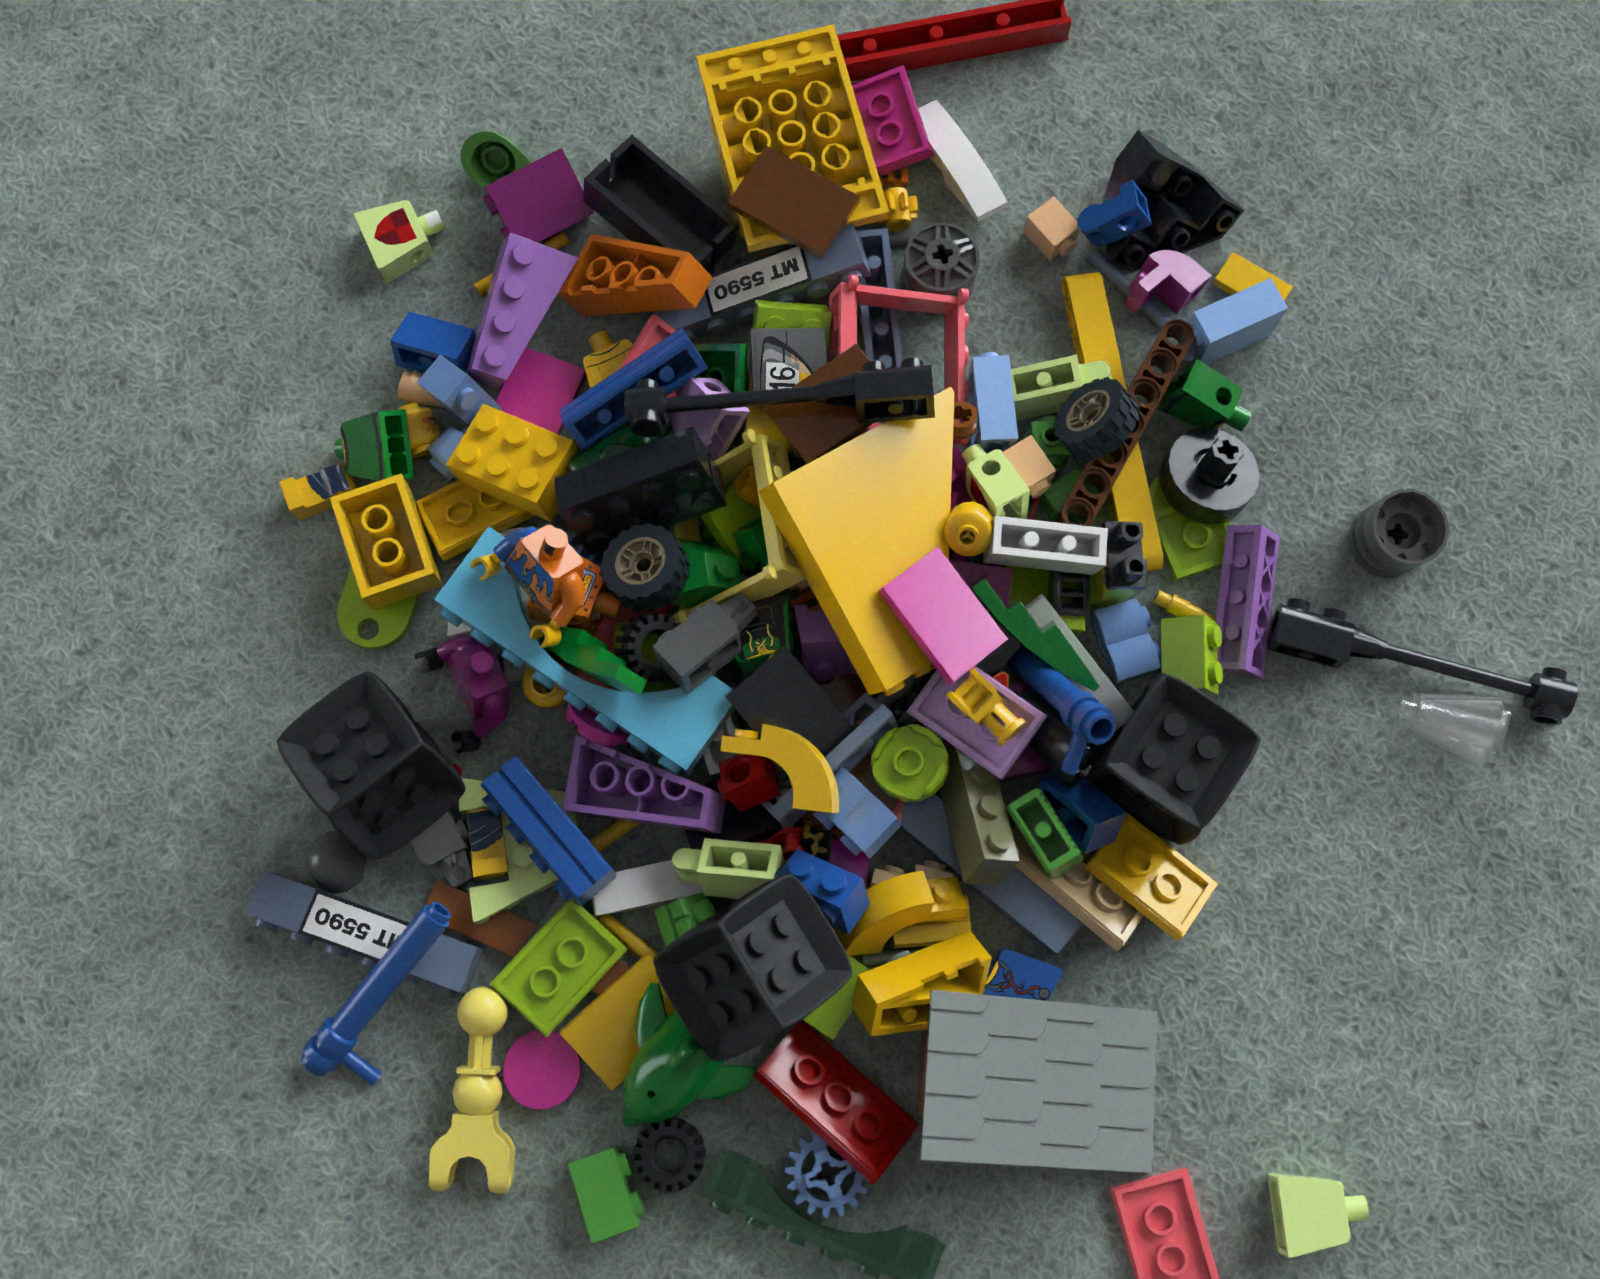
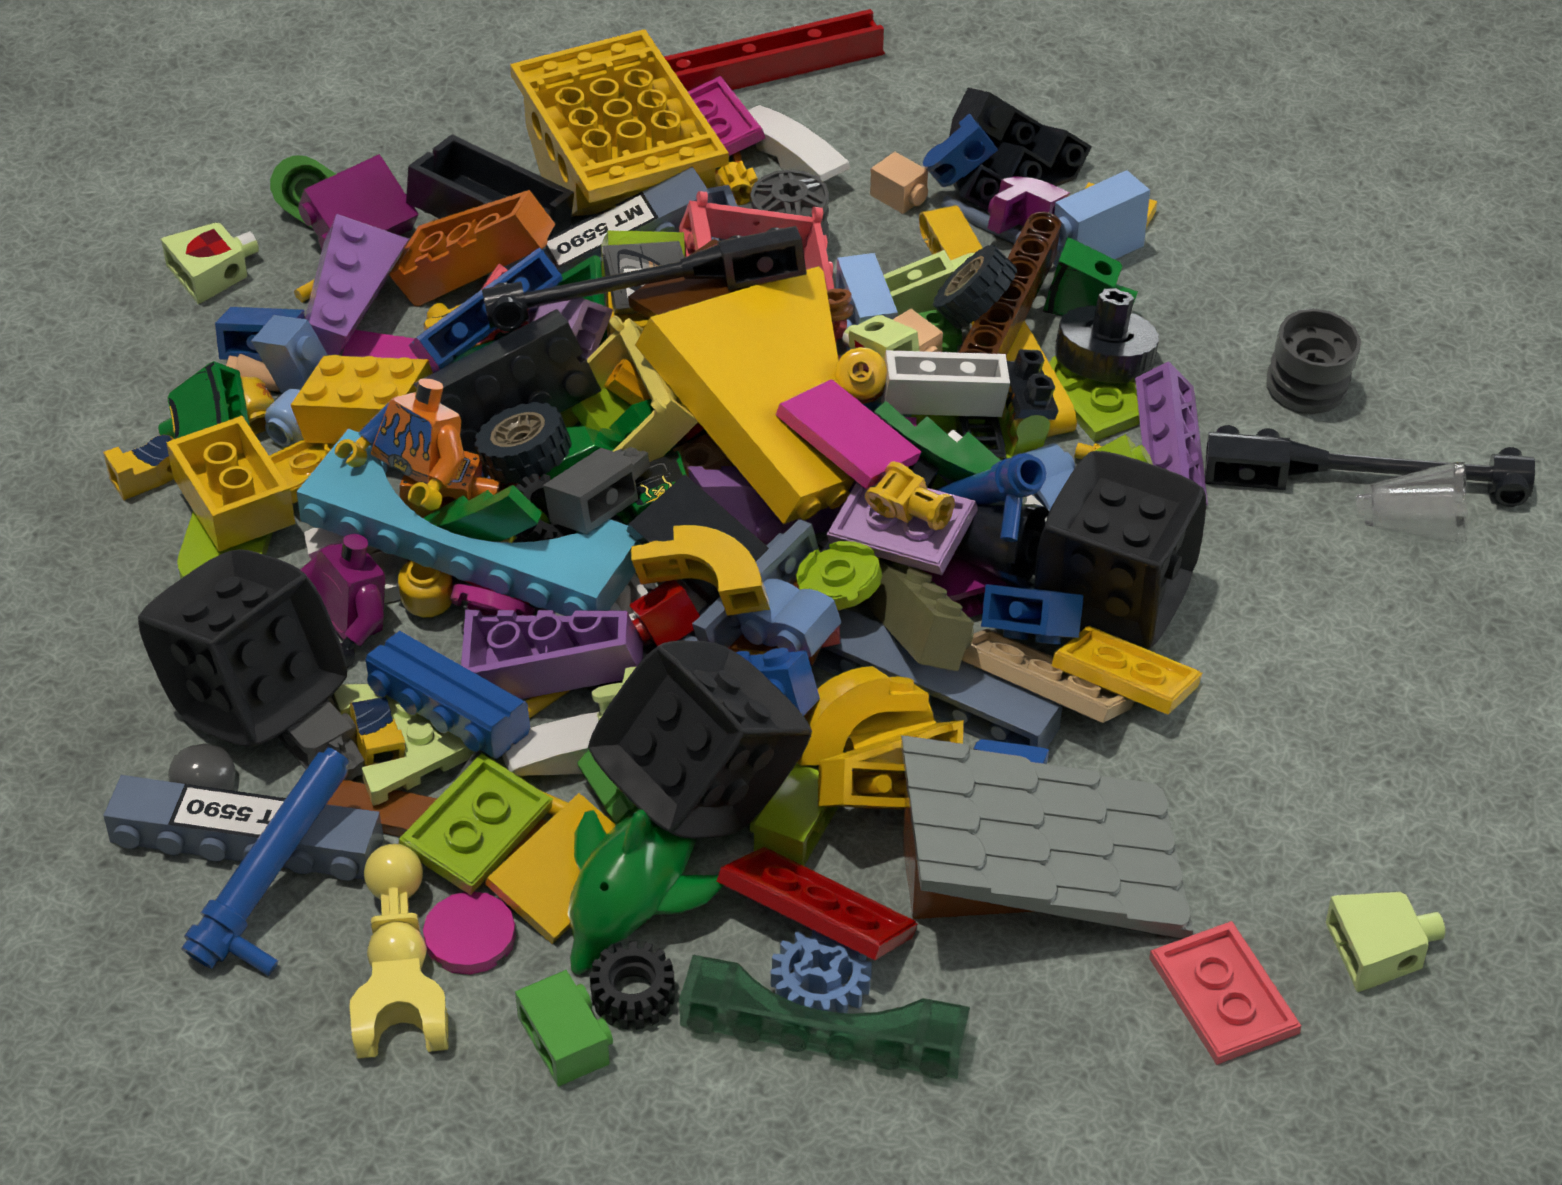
camera: 10 degrees left, 30 degrees down
(794, 202) = (629, 152): reddish brown tile -> none
(1045, 833) = (1000, 615): bright green brick -> none

